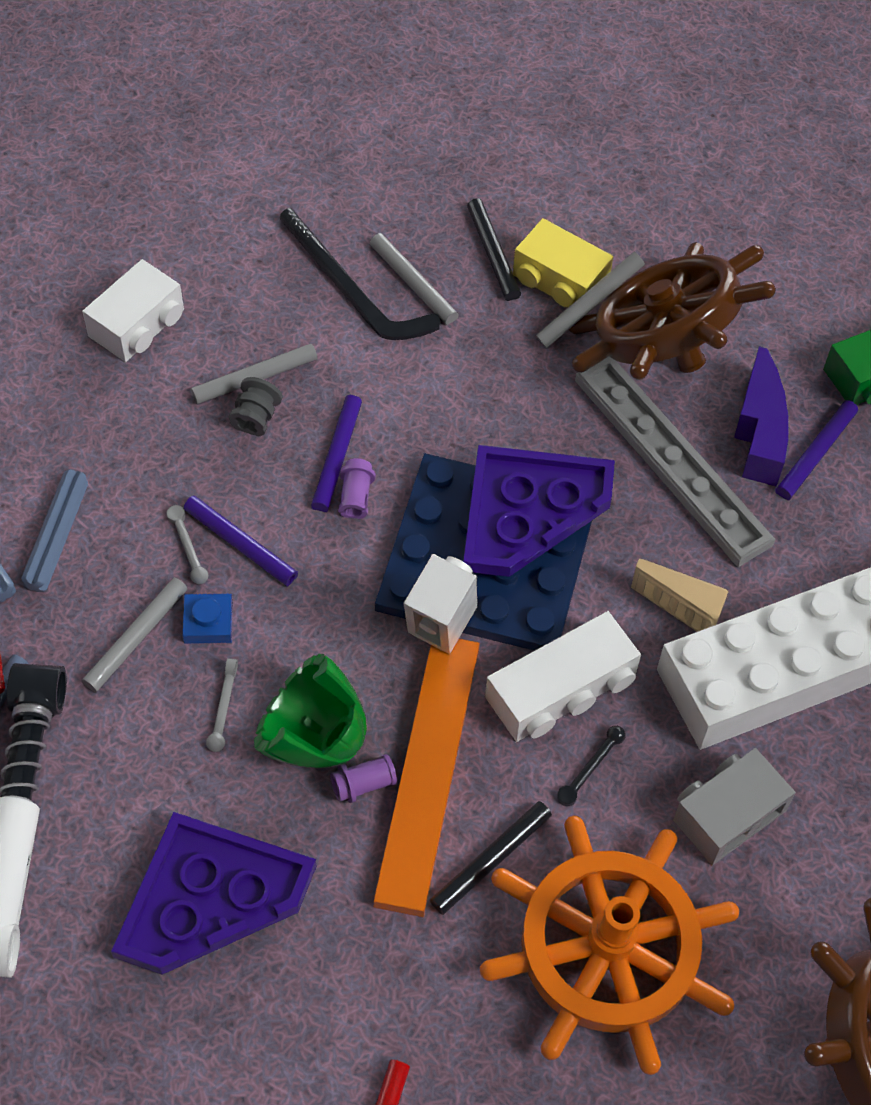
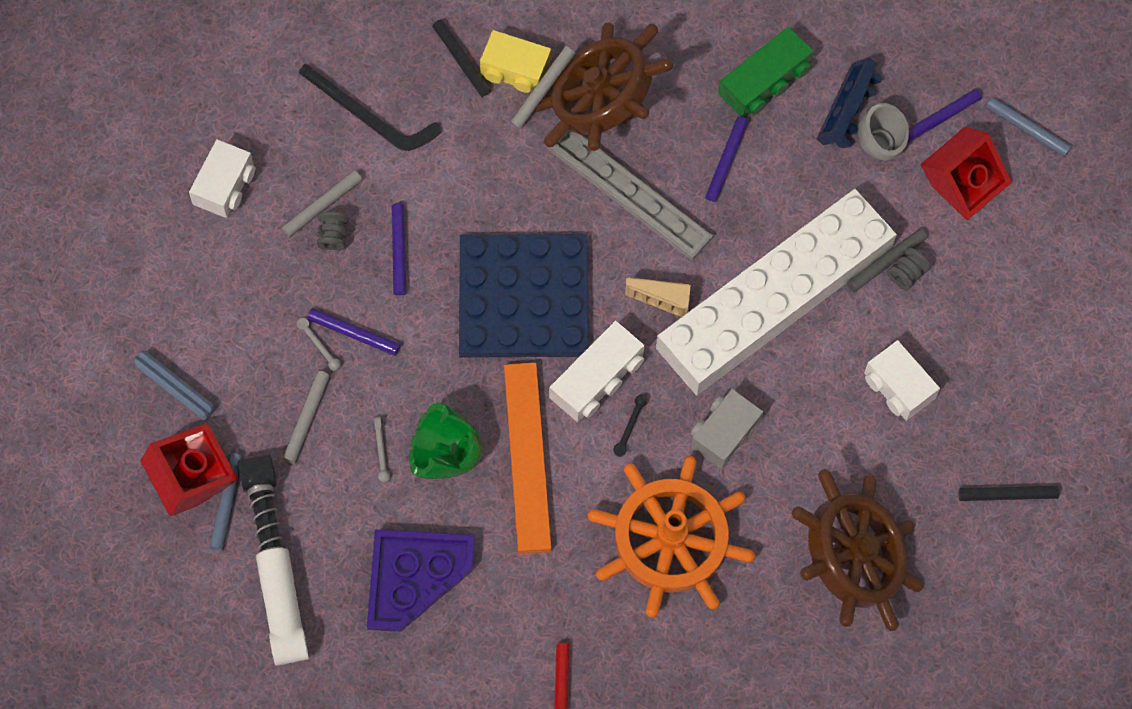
camera: 15 degrees left, 10 degrees up
(54, 531) = (226, 358): sand blue axle -> none
(207, 618) = (350, 393): blue plate -> none
(356, 478) = (420, 273): medium lavender pin -> none
(362, 778) = (487, 474): medium lavender pin -> none
(413, 279) = (411, 97): light grey bar -> none
(441, 602) = (507, 346): white brick -> none
(490, 857) = (582, 503): black bar -> none
(529, 504) = (543, 257): dark purple plate -> none
(764, 422) = (685, 149): dark purple slope -> none

